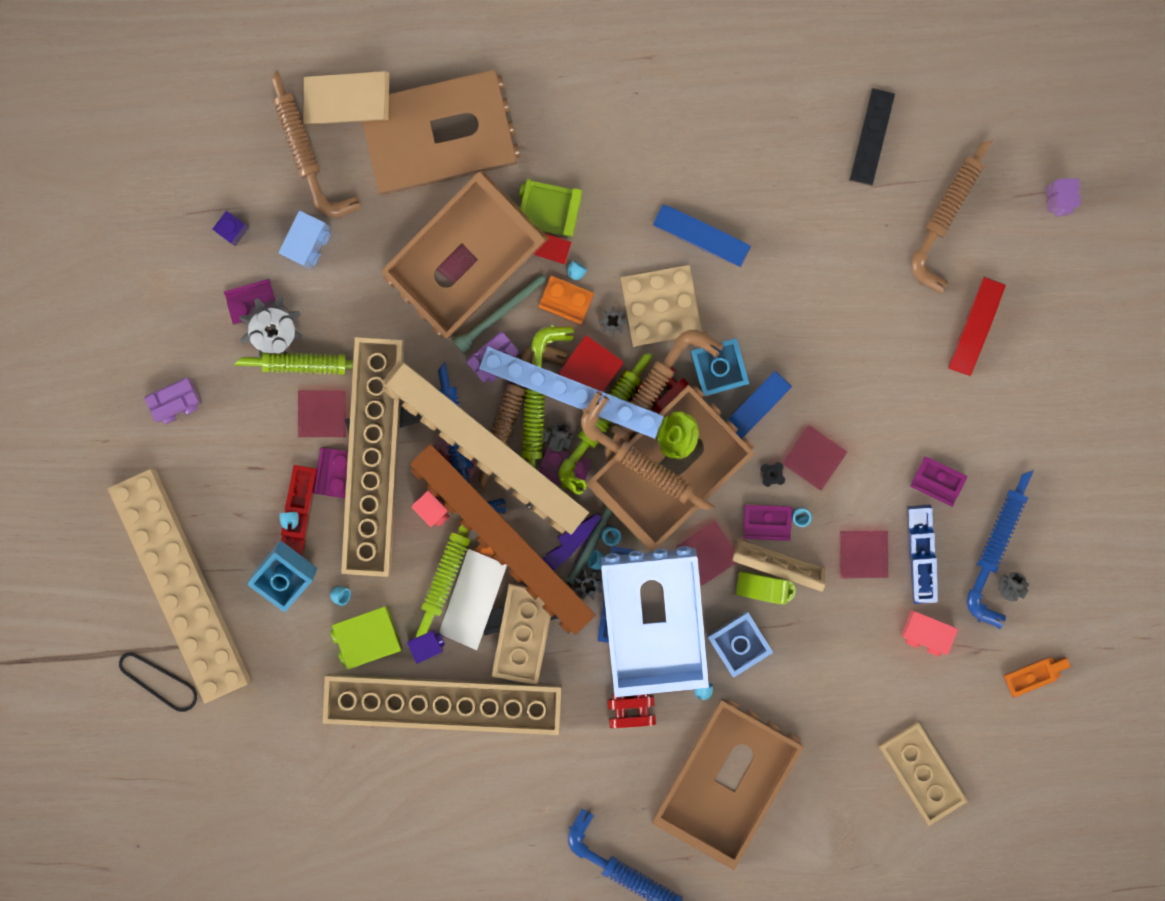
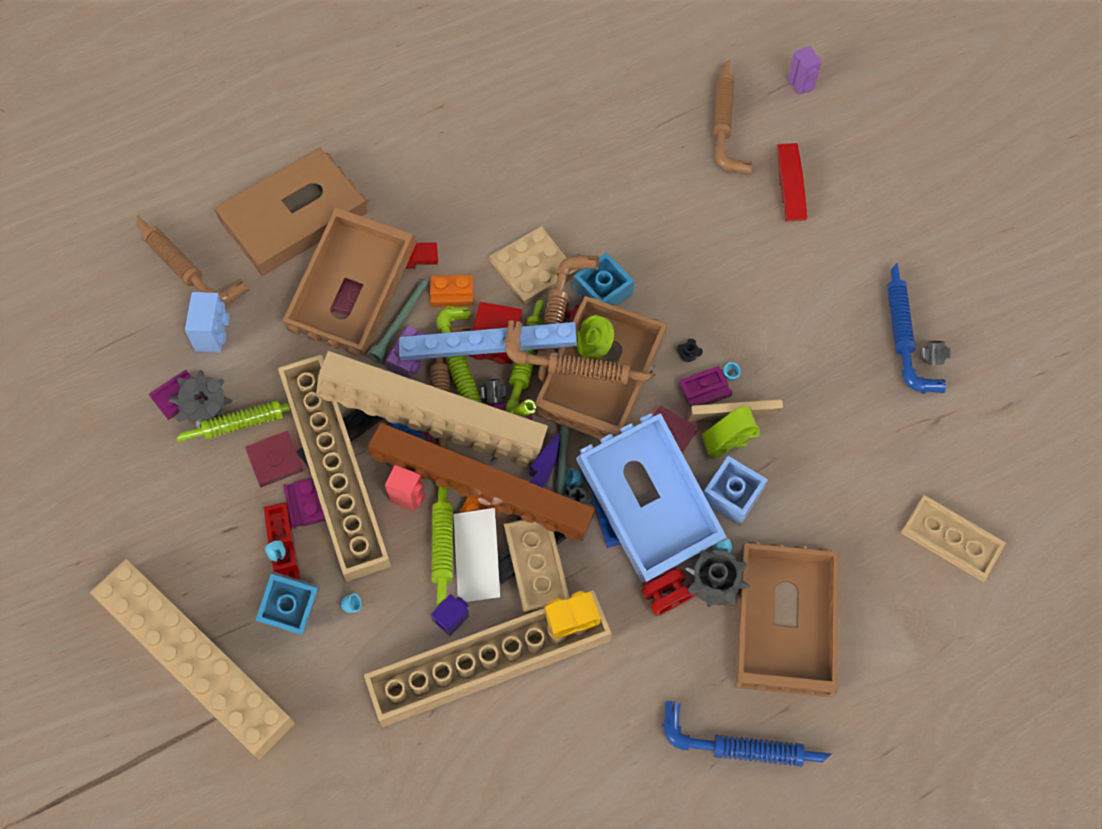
camera: 25 degrees left, 25 degrees down
(150, 690) = (200, 751): black piece -> none
(173, 400) = (131, 498): medium lavender brick -> none
(230, 228) = (137, 341): dark purple brick -> none
(346, 98) = (203, 209): tan tile -> none
(366, 637) = (390, 629): lime panel -> none
(529, 706) = (572, 614): none -> yellow brick
(551, 207) = (415, 222): lime panel -> none
(576, 270) = (450, 264): medium azure hinge -> none
(605, 537) = (574, 447): medium azure hinge -> none
(612, 328) = (498, 288): dark grey gear -> none
(694, 721) = (717, 590): none -> dark grey brick
(701, 235) = (541, 200): blue slope -> none
(759, 403) = (652, 294): blue slope -> none
(814, 457) = (717, 326): clear pink tile -> none
(864, 554) = (799, 381): clear pink tile -> none
(872, 137) = (639, 94): black plate -> none
(922, 554) = (847, 362): slope -> none
(929, 633) = (889, 417): coral brick -> none
(938, 481) = (827, 301): magenta plate -> none
(1035, 675) = (996, 415): orange hinge -> none

